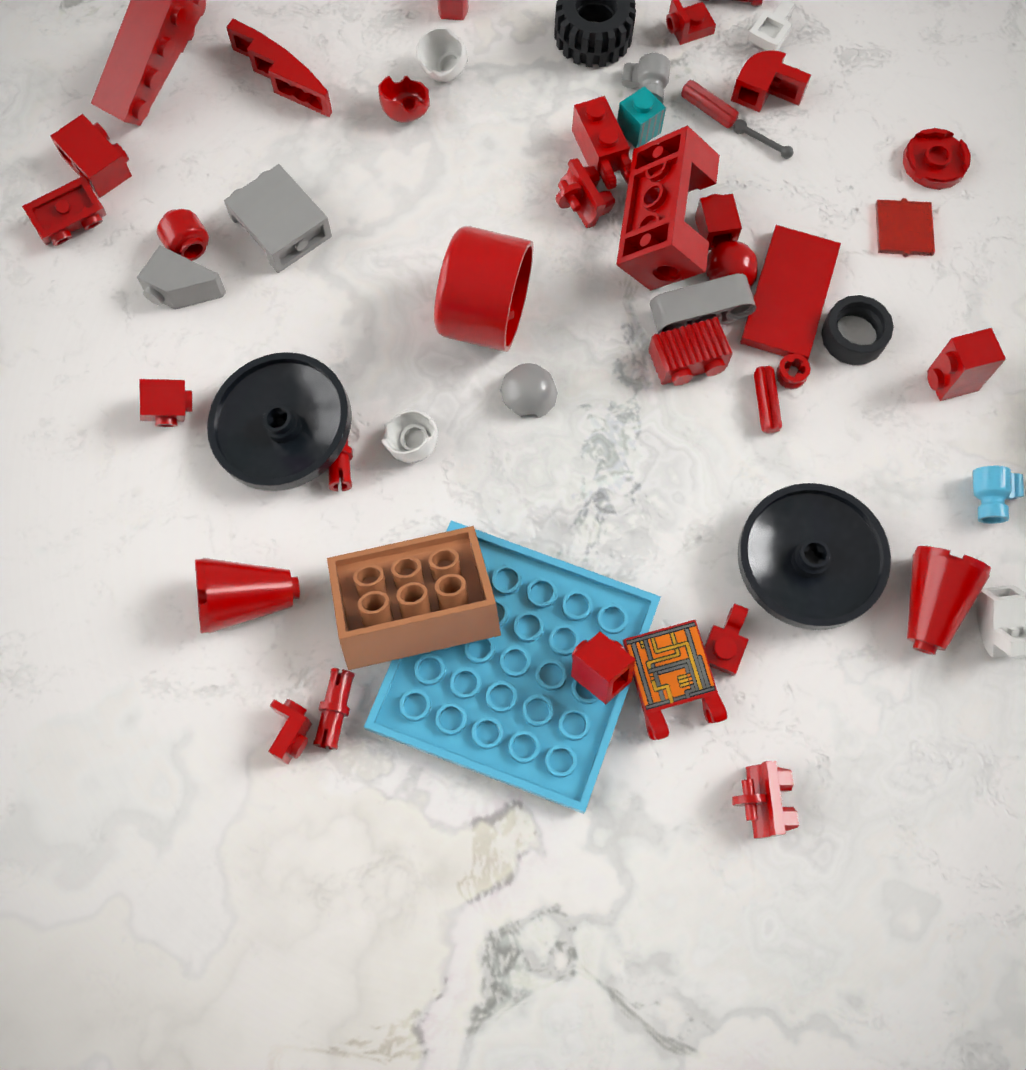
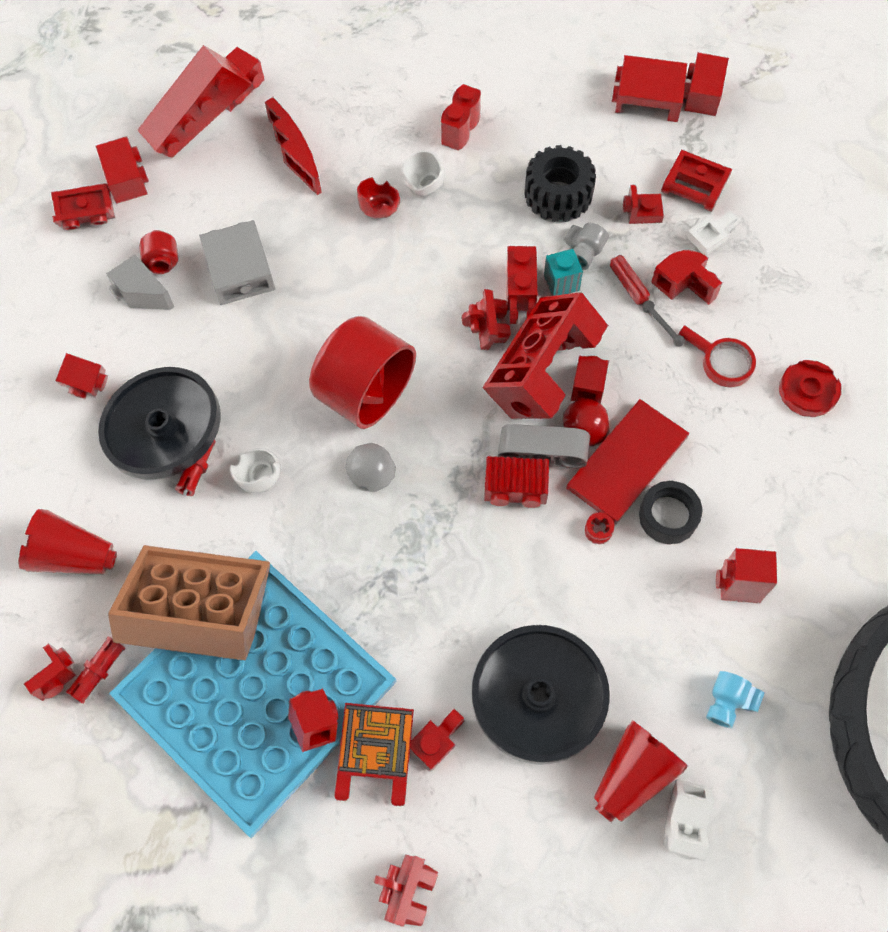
camera: 25 degrees right, 5 degrees down
(767, 399) = (566, 544): red axle -> none
(842, 158) = (726, 361): none -> piece
(905, 227) = (755, 438): clear red piece -> none

